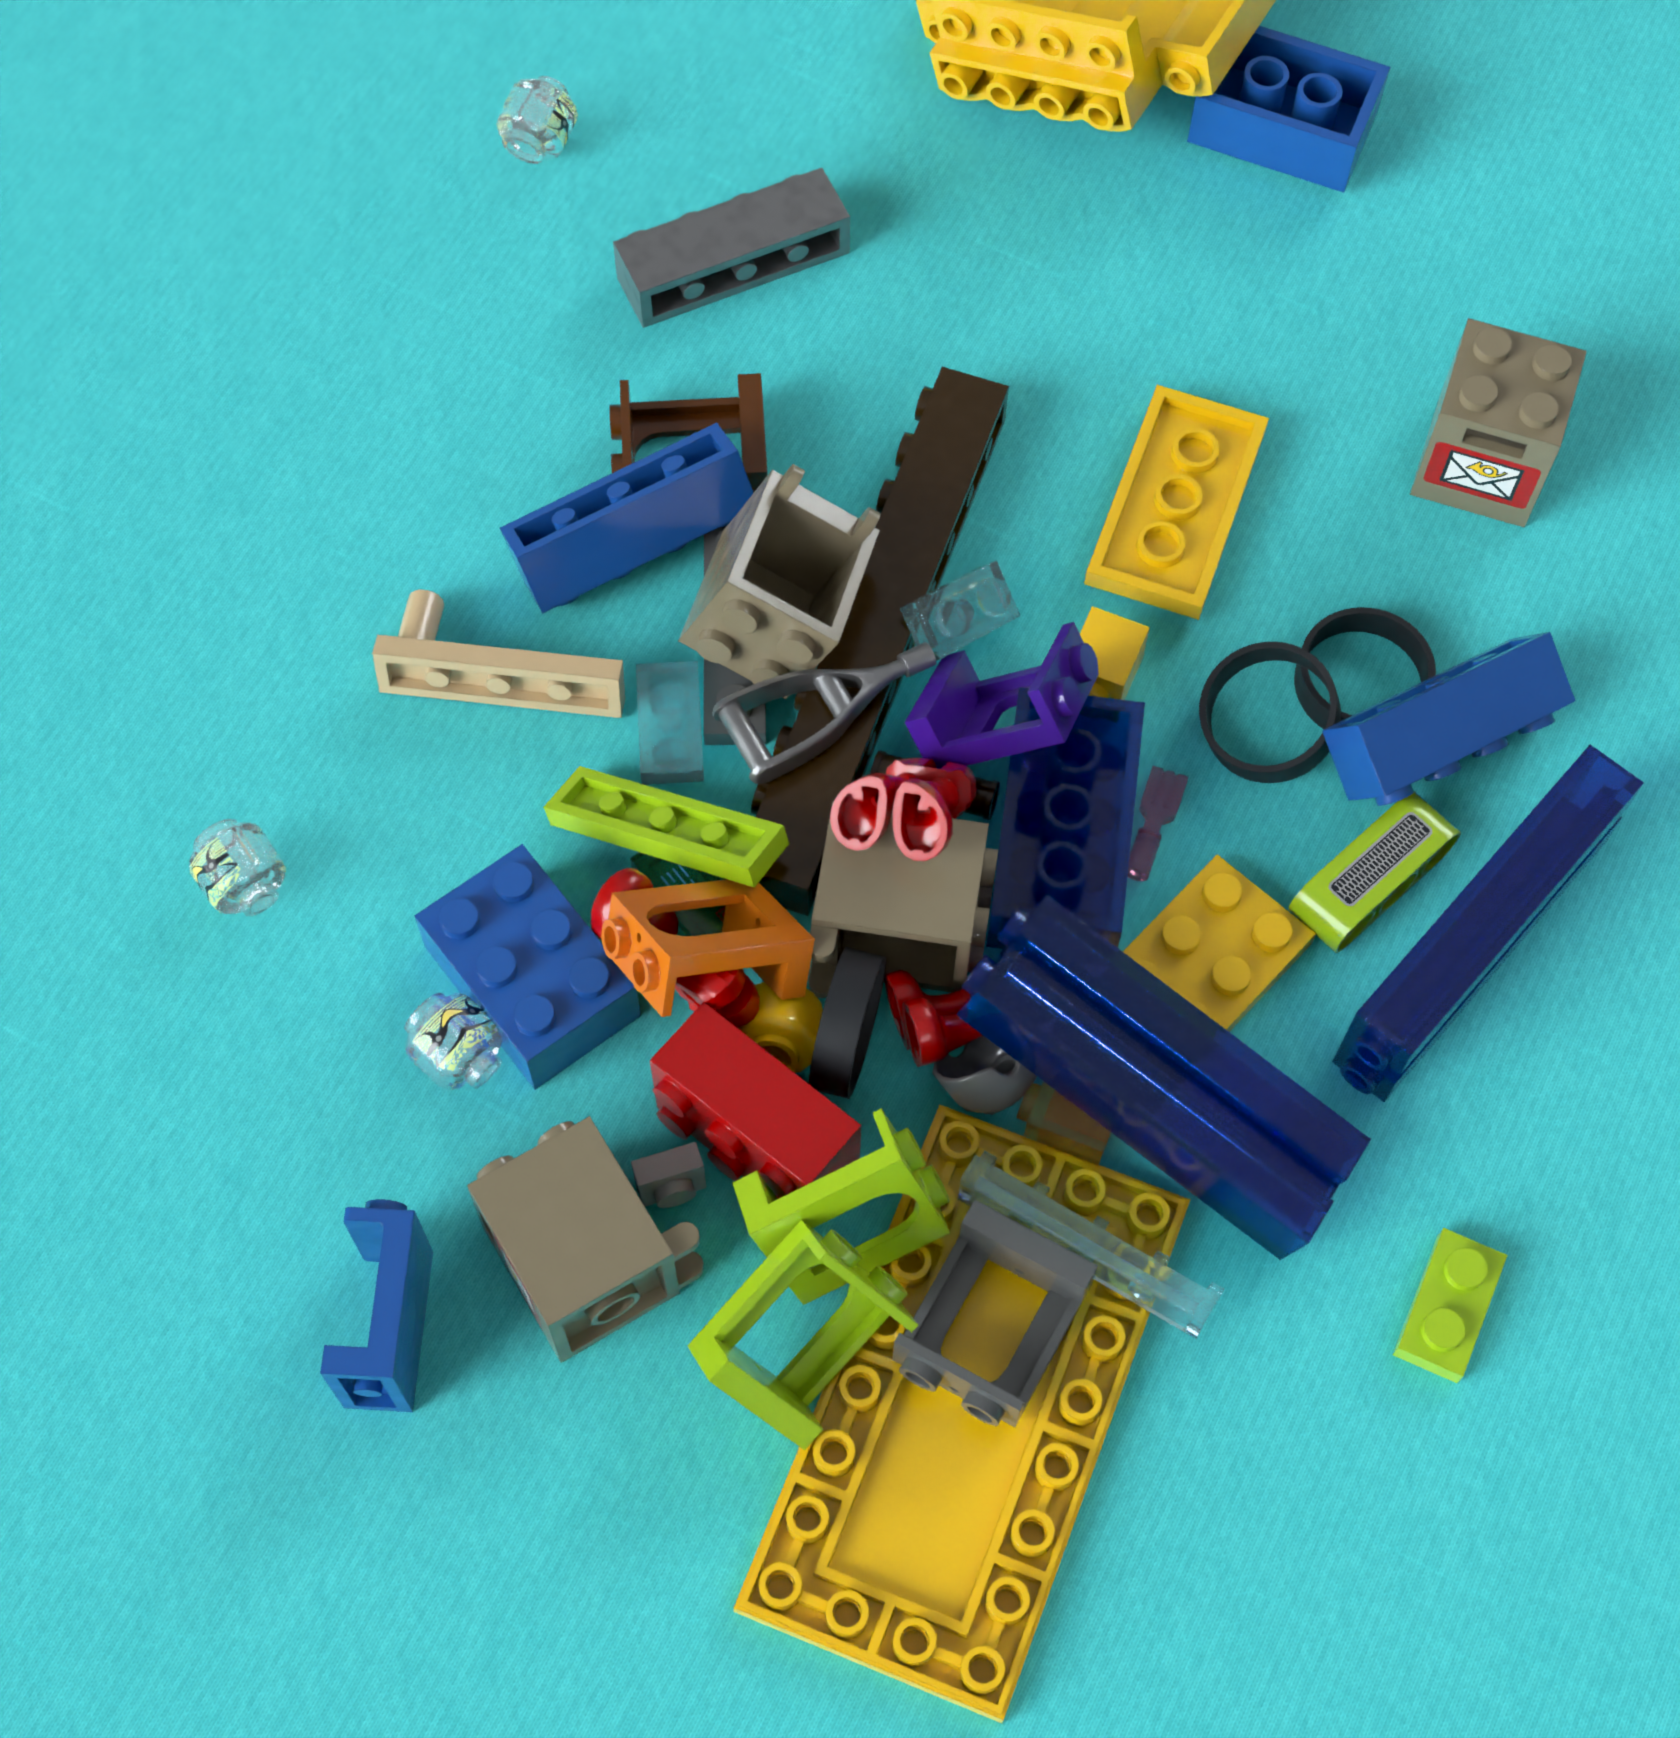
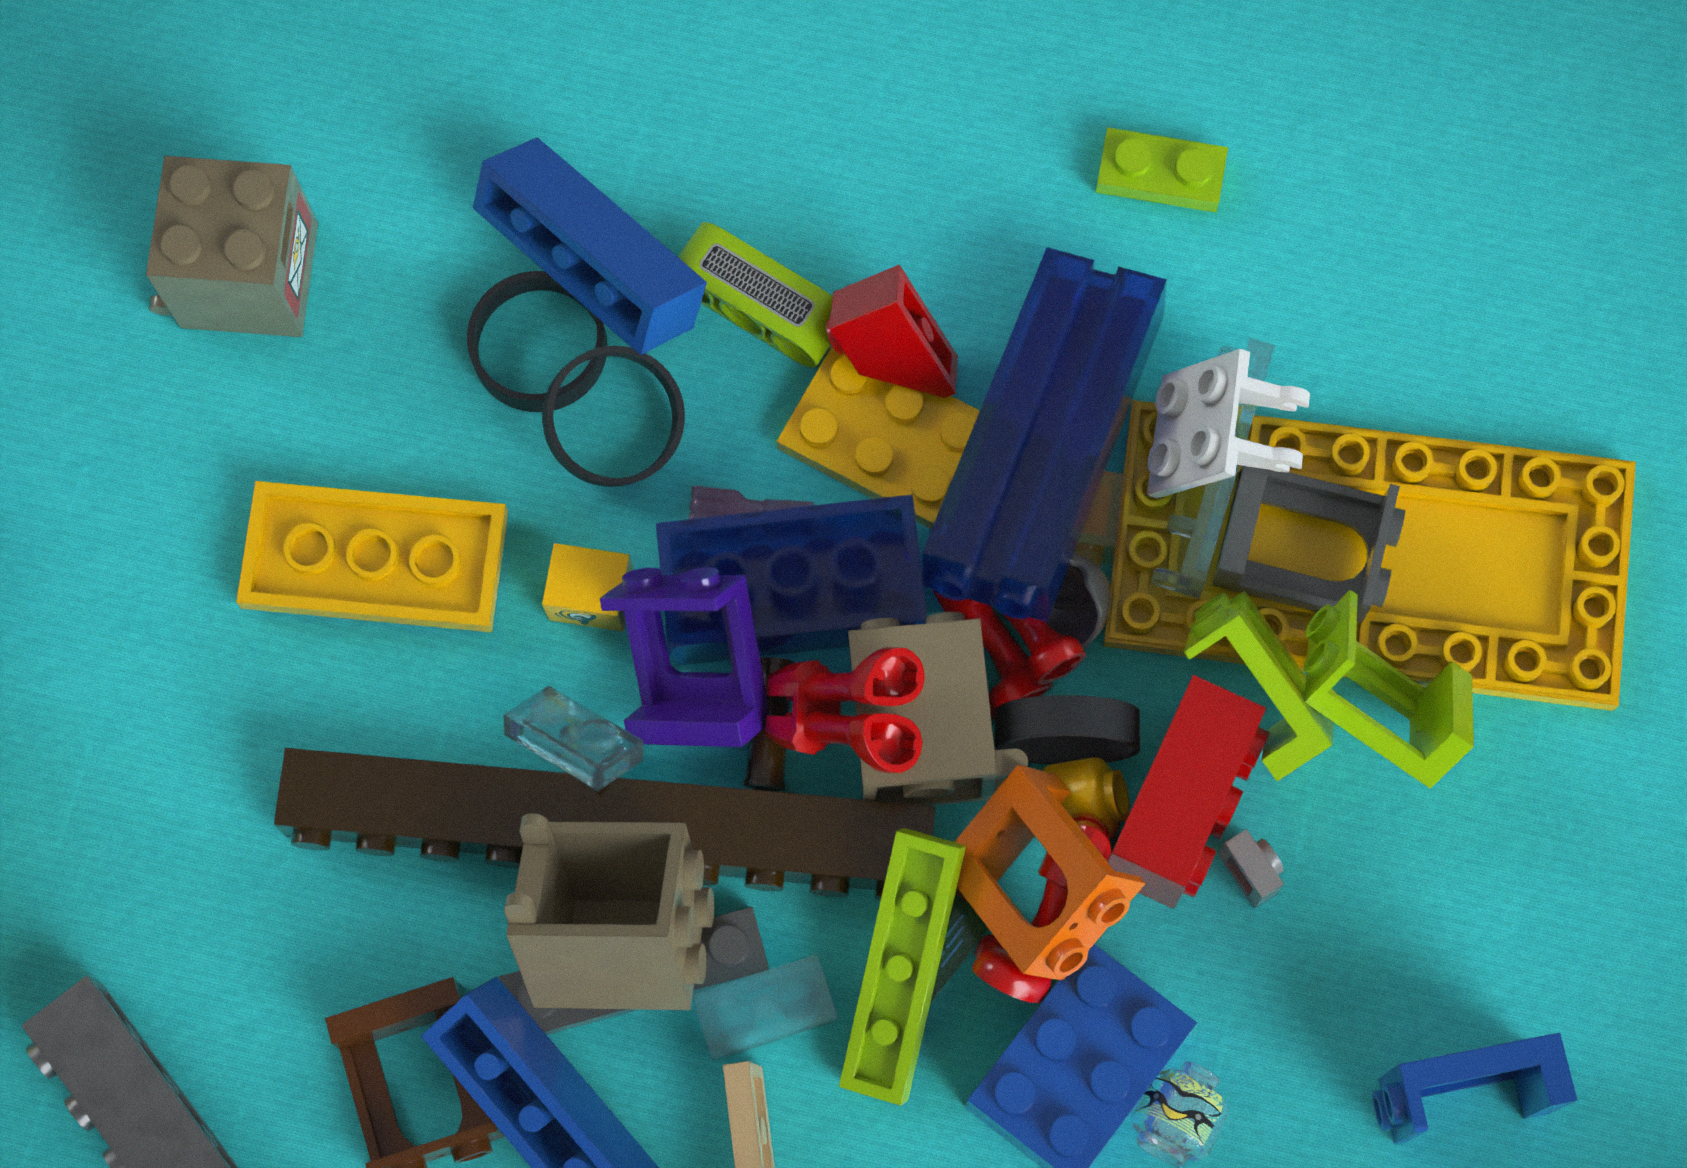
camera: 100 degrees left, 10 degrees up
(580, 1237) = (1352, 922): dark tan container -> none
(831, 686) = (722, 826): flat silver piece -> none
(1109, 1203) = (1198, 424): none -> white plate
(1300, 971) = (892, 334): none -> red slope
(1484, 924) = (803, 178): clear blue brick -> none

